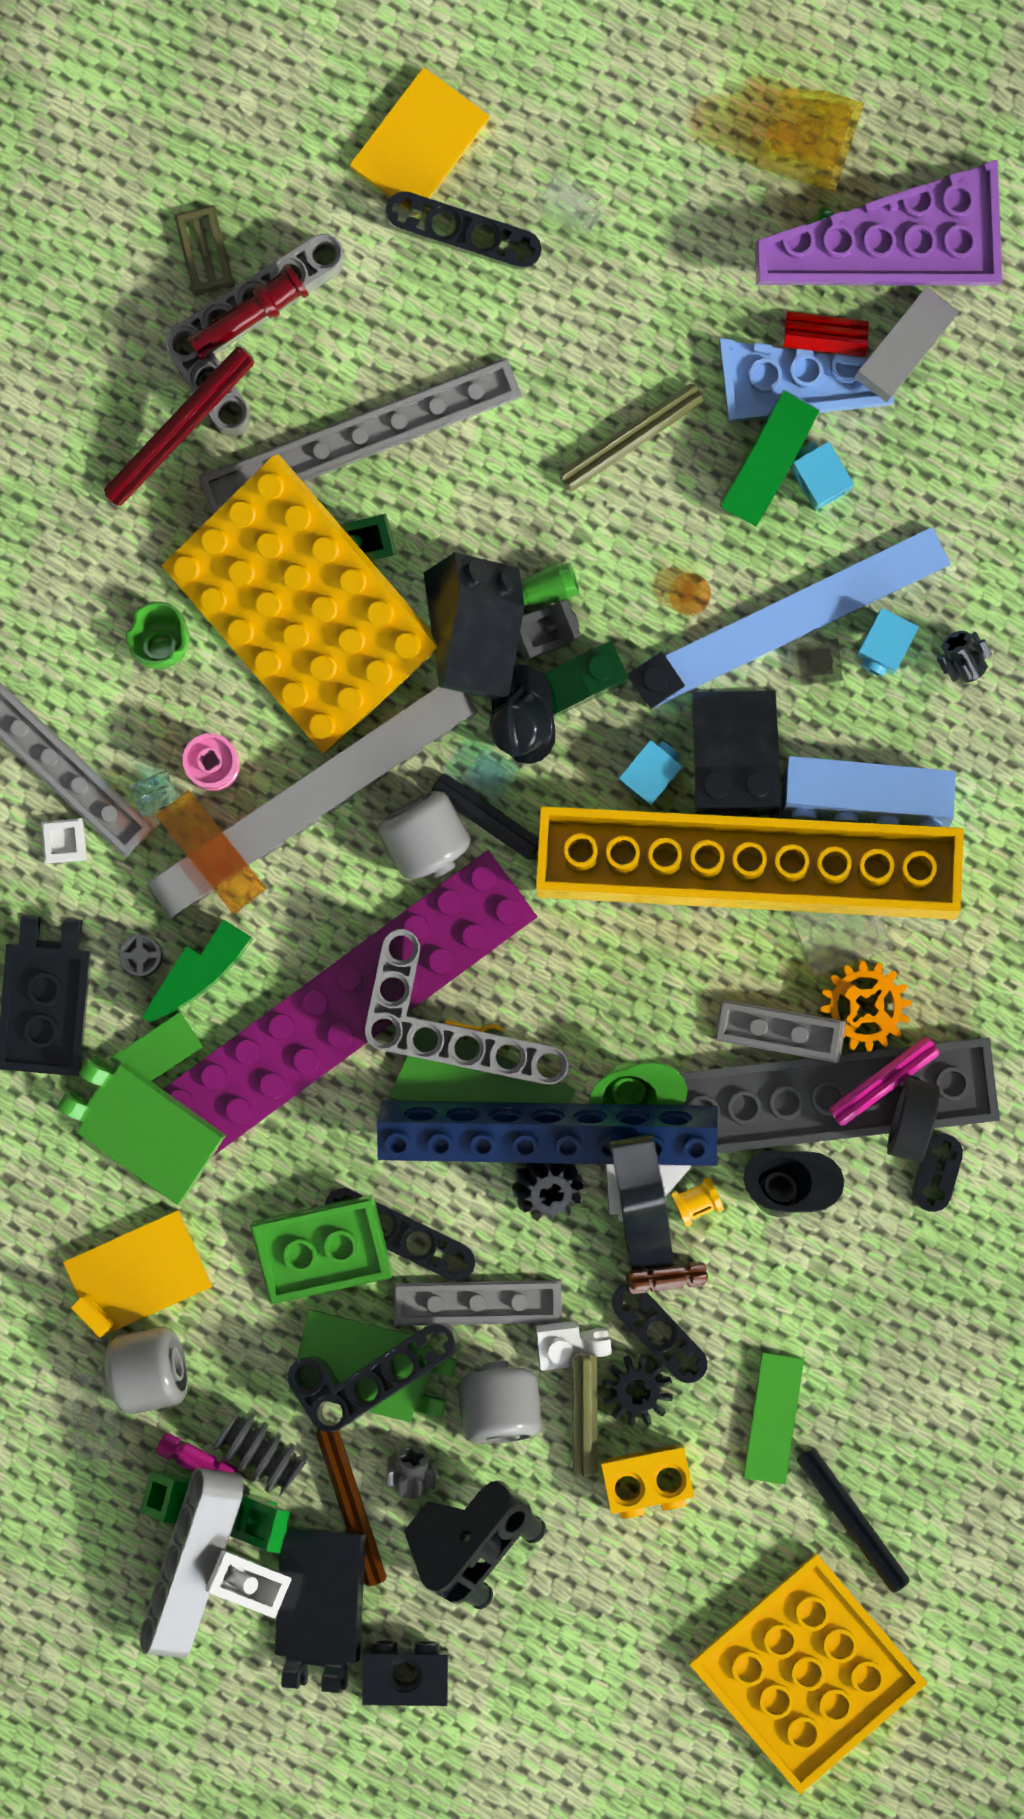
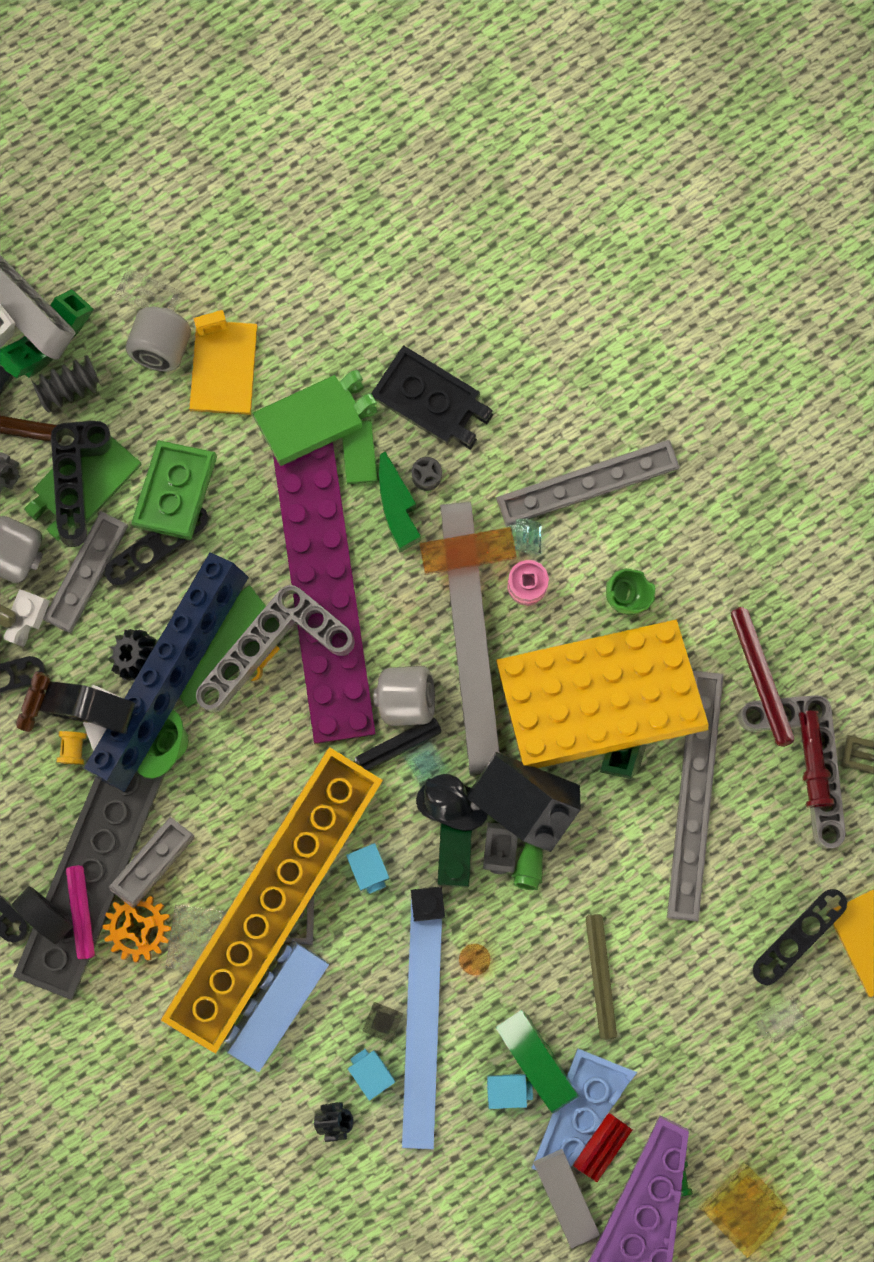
camera: 120 degrees right, 5 degrees down
(63, 841) = (528, 464): white tile -> none
(189, 1455) = (86, 342): dark pink axle -> none
(736, 753) = (352, 932): black slope -> none
(793, 1182) = (48, 816): black piece -> none

